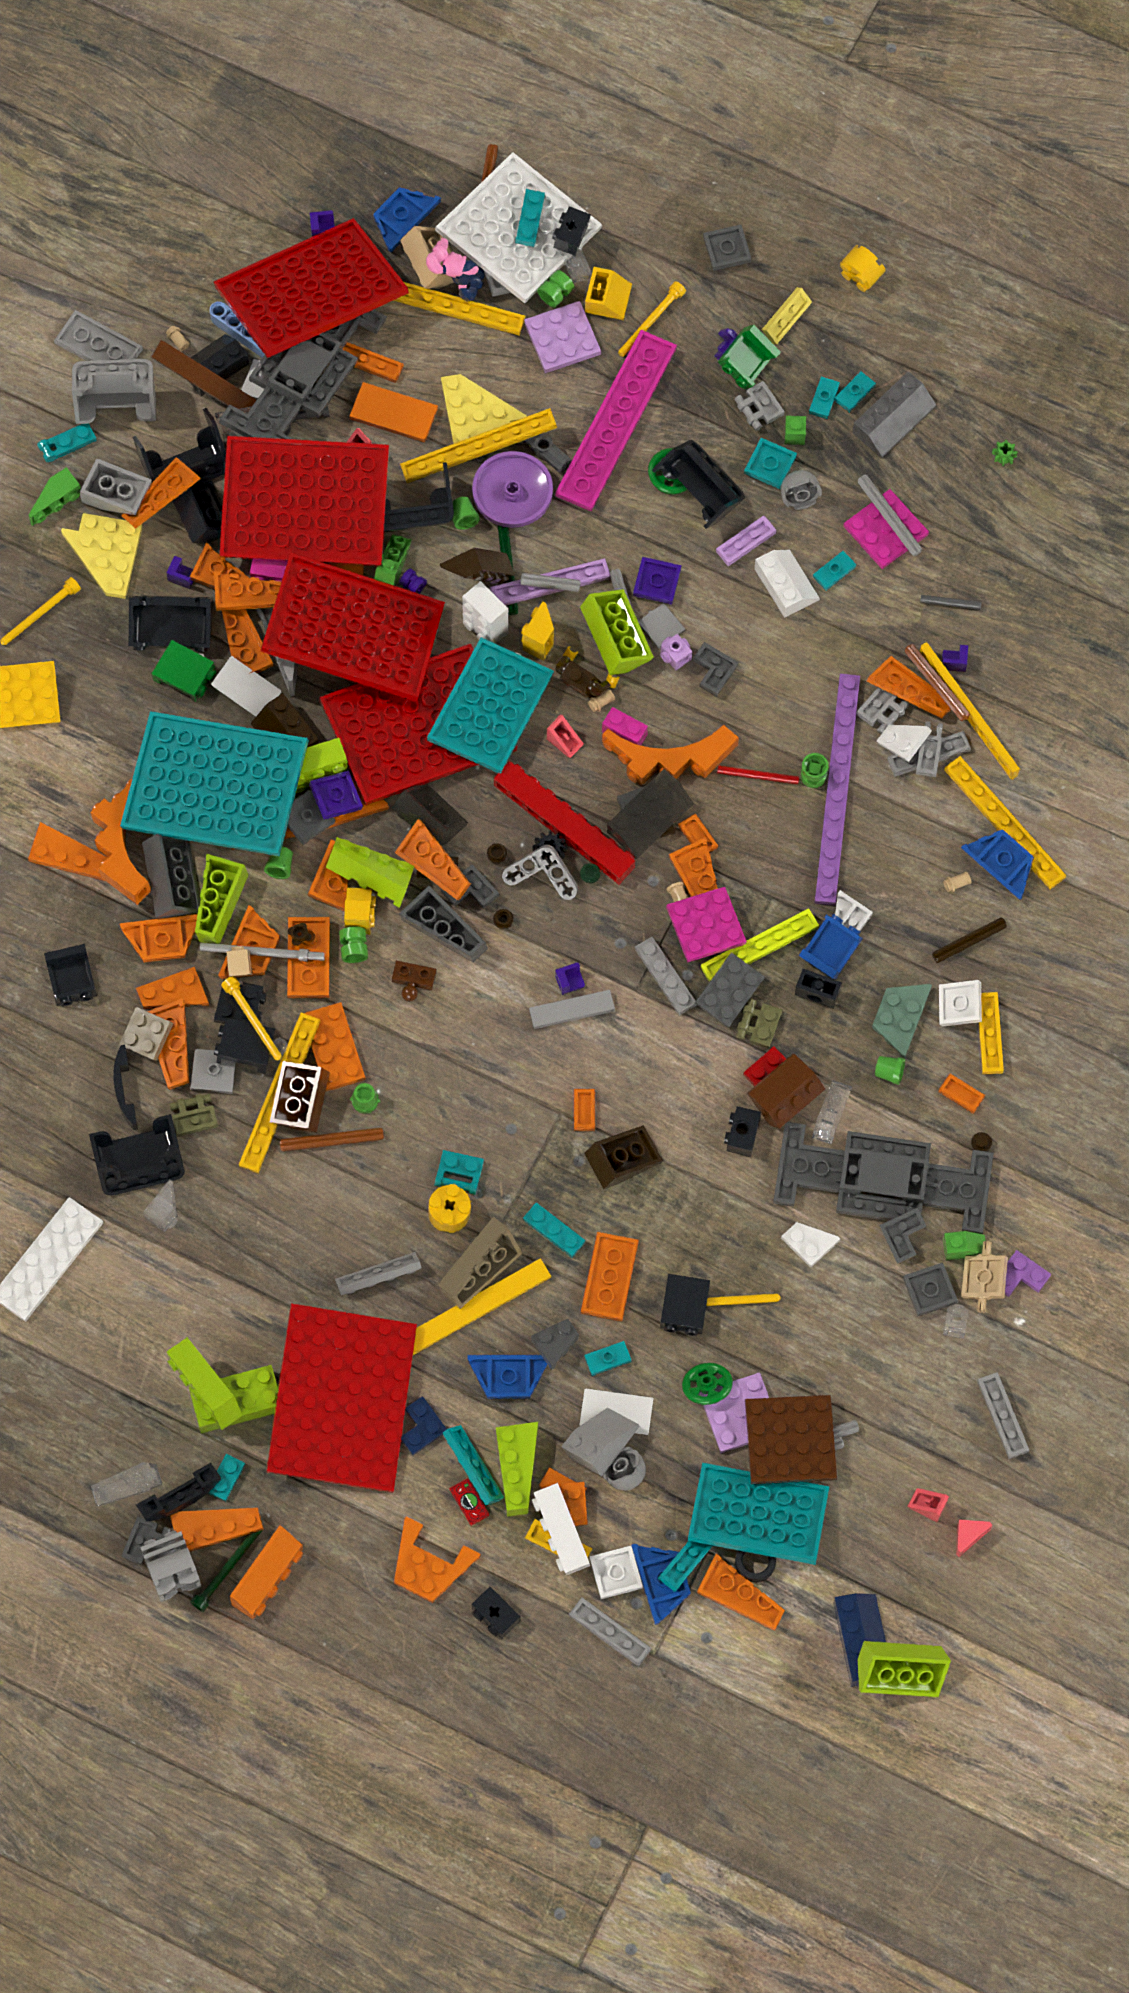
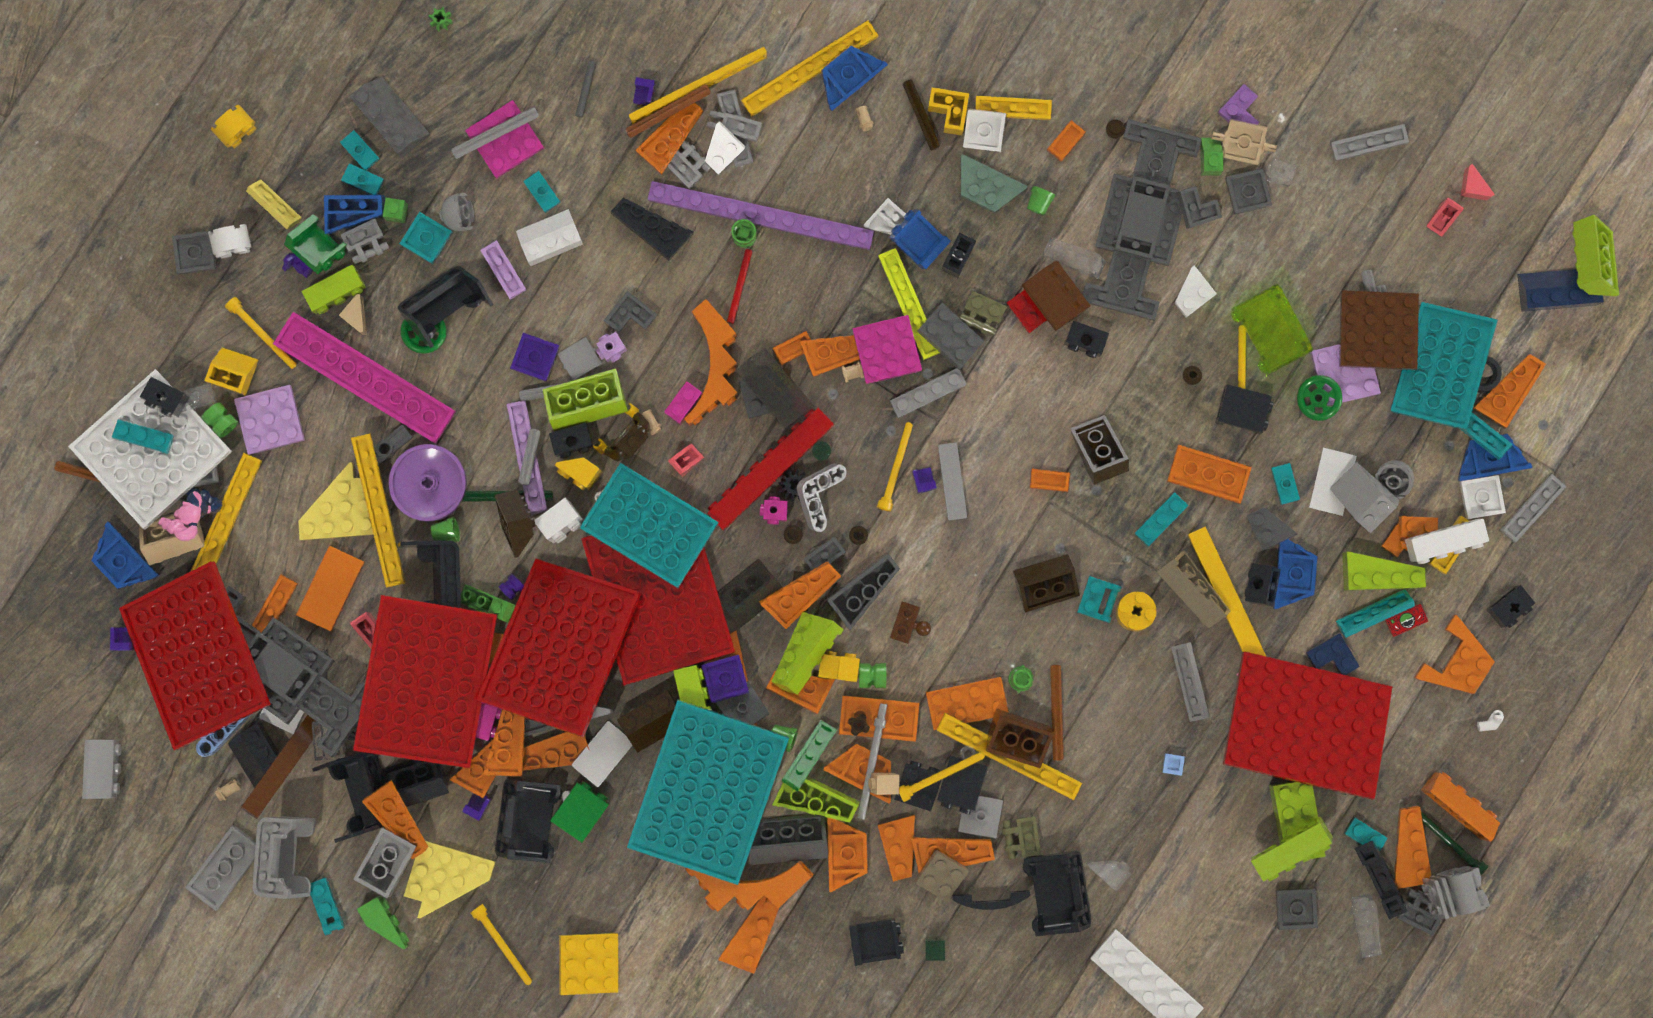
camera: 85 degrees left, 15 degrees up
(67, 1034) = (934, 949): none -> clear green brick
(139, 1408) = (1296, 909): none -> dark grey plate
(188, 217) = (101, 769): none -> light grey slope
(262, 886) = (809, 755): none -> tile
(286, 1264) = (1173, 764): none -> light blue plate
(362, 1605) = (1492, 723): none -> white arm
(471, 1114) = (1046, 583): none -> dark brown slope
(492, 1338) = (1267, 593): none -> black brick
(520, 829) = (780, 515): none -> dark pink brick
(541, 943) = (886, 501): none -> yellow piece
(572, 612) = (560, 437): none -> black brick
(681, 404) = (355, 314): none -> tan slope
(704, 381) = (334, 290): none -> lime brick
(717, 1253) = (1186, 377): none -> dark brown plate
(742, 277) = (230, 240): none -> white brick
(776, 1324) = (1273, 329): none -> clear neon green windscreen
(788, 385) = (350, 210): none -> blue wedge
(806, 686) = (656, 231): none -> black wing
(981, 967) = (953, 105): none -> yellow brick

